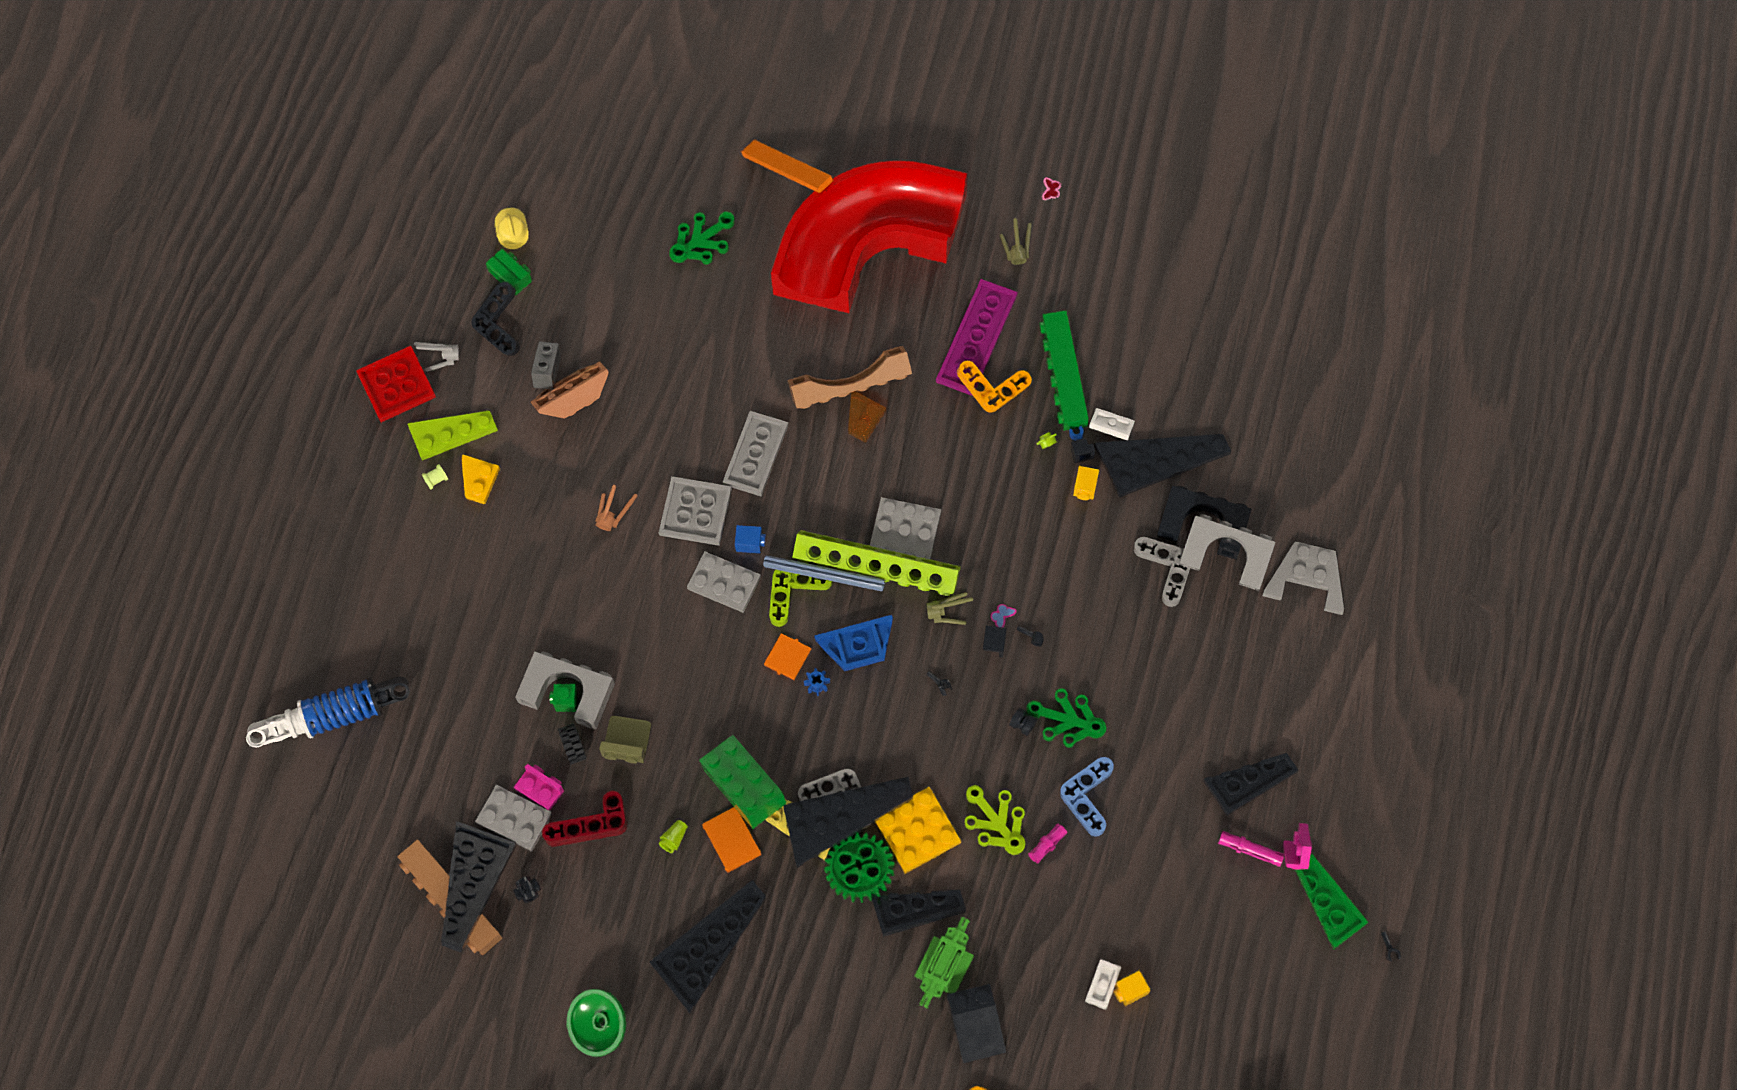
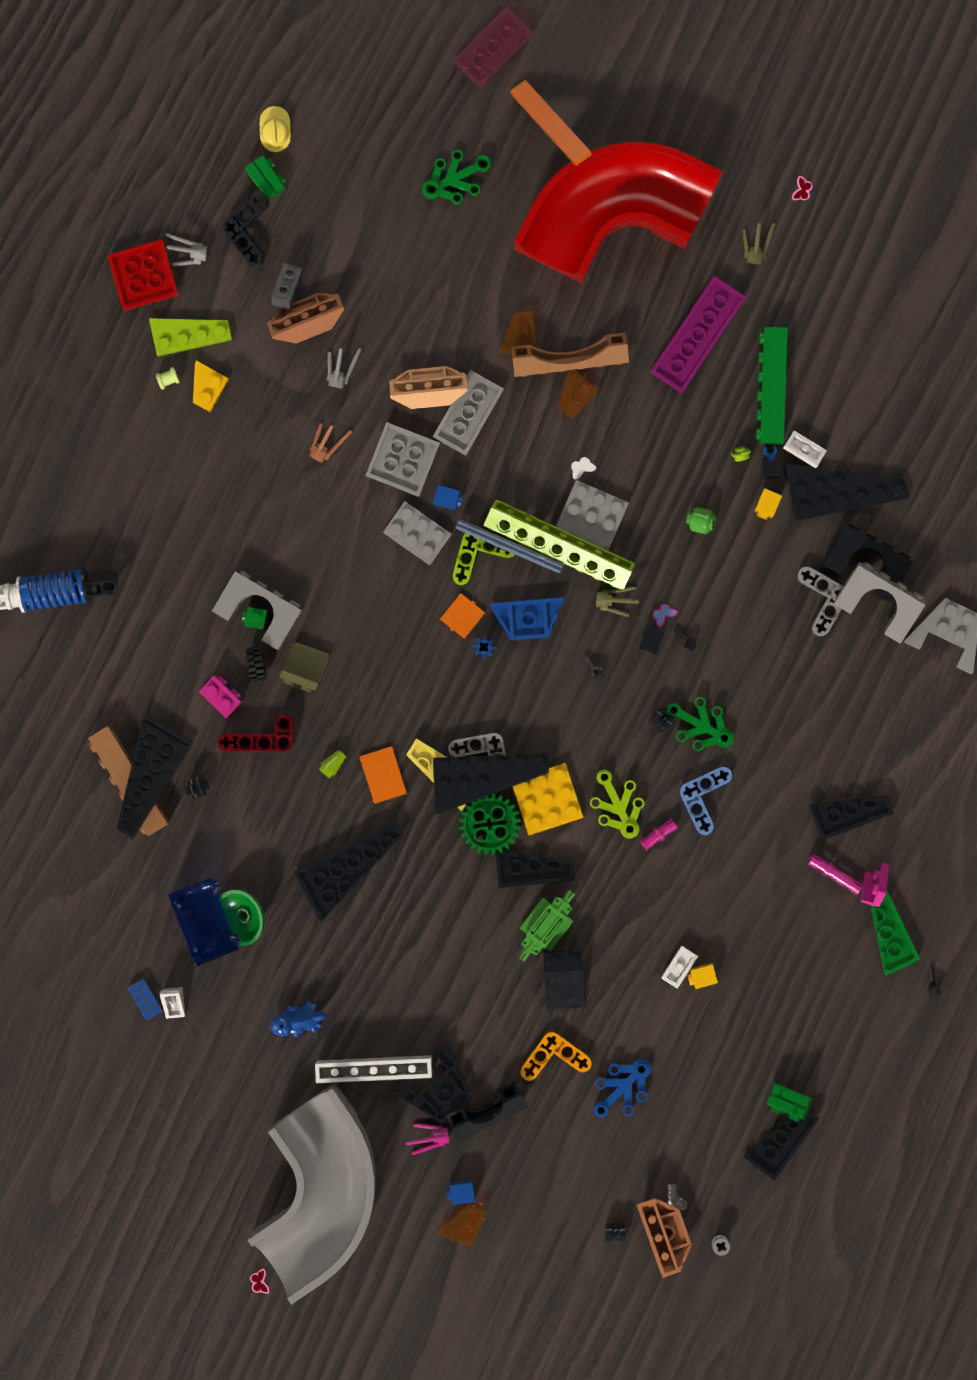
camera: 10 degrees right, 20 degrees up
(513, 817) = (195, 718): light grey plate -> none
(554, 1034) = (204, 921): none -> clear blue windscreen
(612, 445) = (337, 378): none -> light grey plant
(710, 435) = (428, 387): none -> light nougat wedge
(717, 117) = (493, 47): none -> clear pink plate
(743, 781) = (401, 730): green brick -> none
(794, 365) = (520, 332): none -> clear orange wing
(882, 486) = (583, 465): none -> white sticker
(989, 392) = (697, 395): light orange beam -> none
(1021, 512) = (701, 520): none -> bright green head

